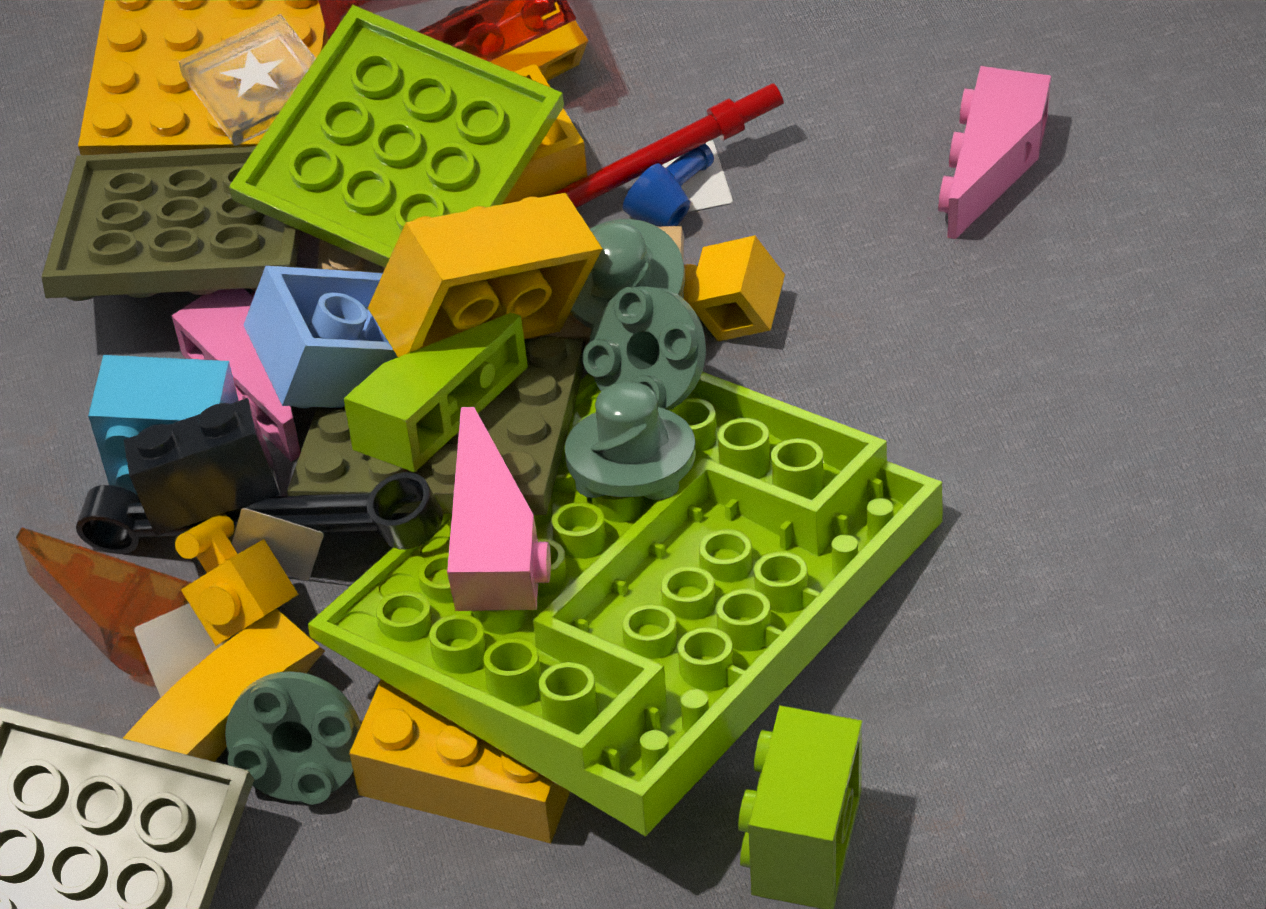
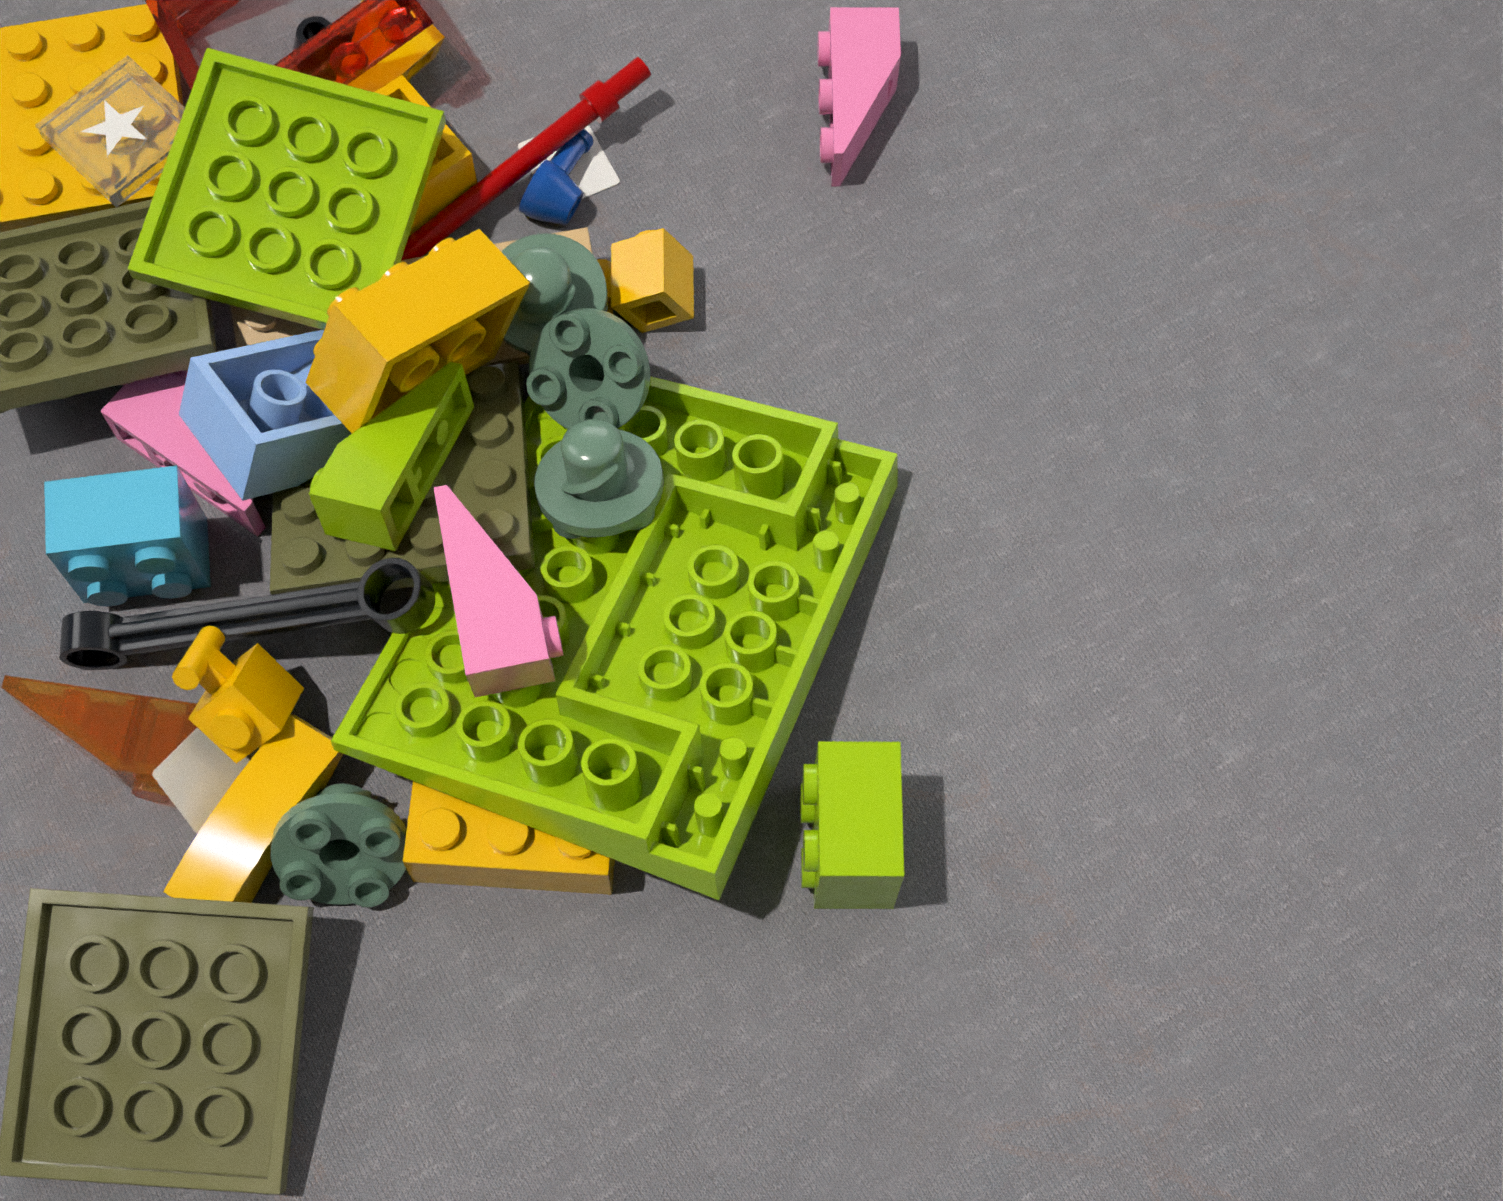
camera: 20 degrees left, 15 degrees up
(200, 466) = (176, 586): black brick -> none
(290, 543) = (280, 642): white sticker -> none

